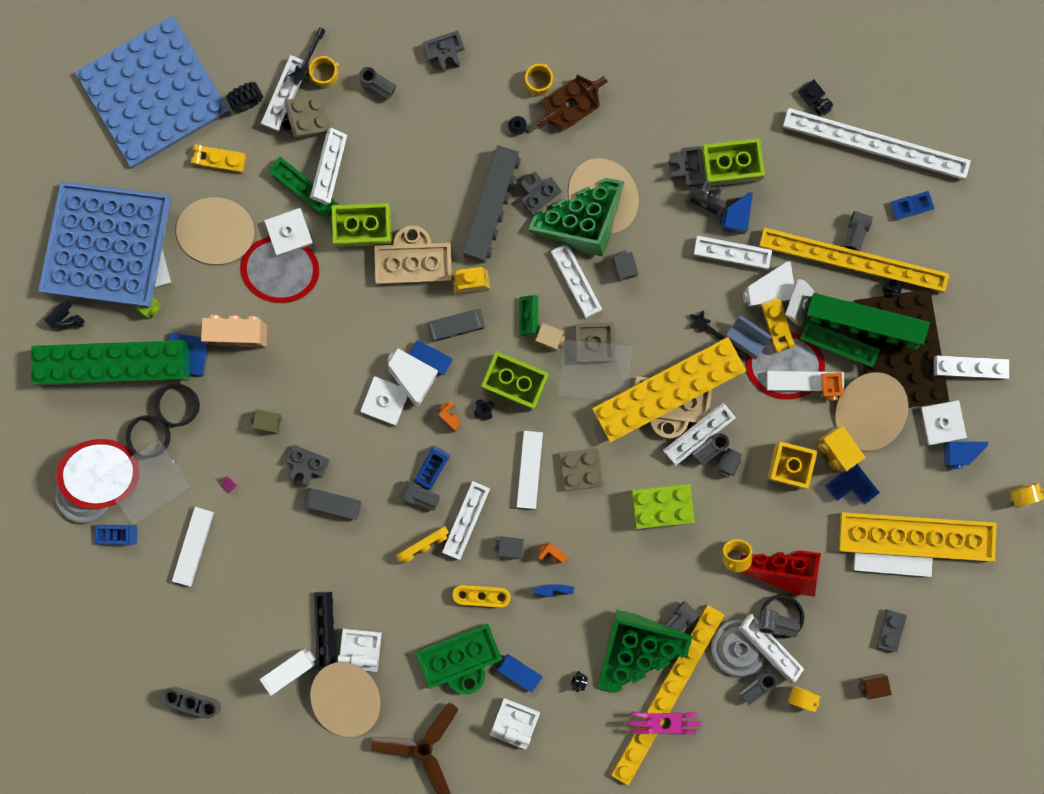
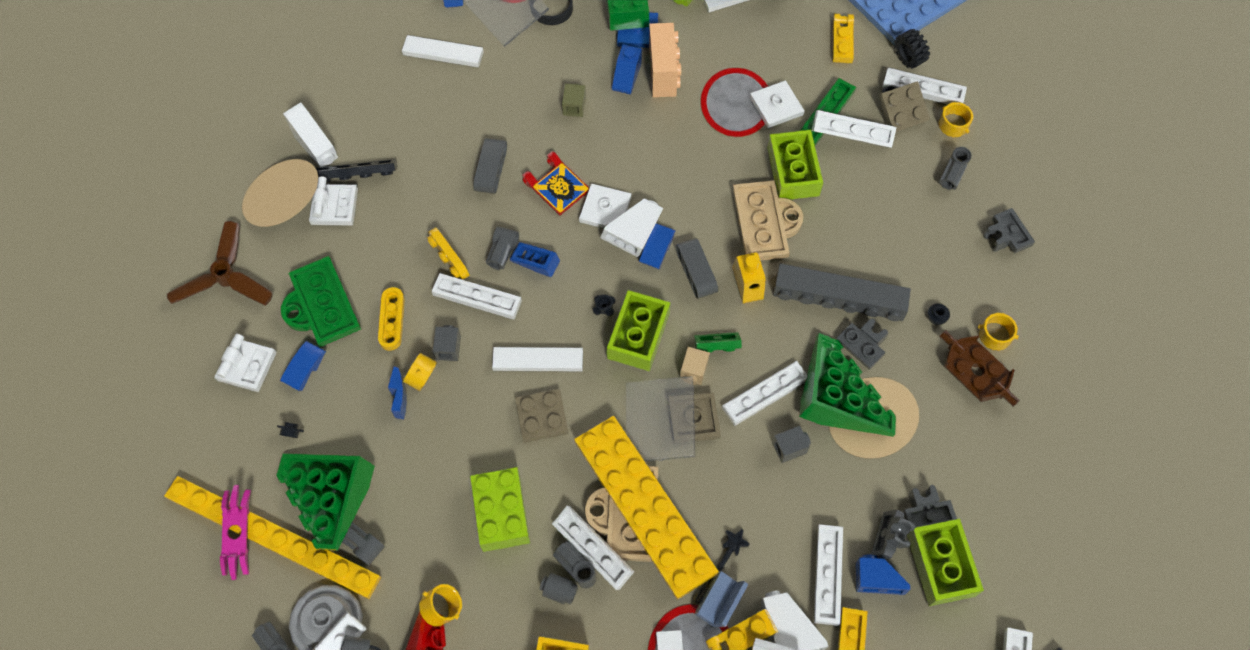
camera: 85 degrees right, 20 degrees down
(158, 399) = (585, 9): black tyre -> none
(182, 705) = (284, 60): dark grey beam -> none
(215, 230) = (768, 43): tan sticker -> none
(228, 484) = (508, 76): dark pink piece -> none
(237, 368) = (627, 69): none -> blue slope
(300, 73) = (951, 95): black piece -> none
(306, 464) = (529, 139): dark grey plate -> none
(359, 441) = (559, 187): none -> flag
(452, 420) = (591, 267): orange bracket -> none
(538, 570) = (420, 372): none -> yellow piece
(556, 554) = (440, 393): orange bracket -> none

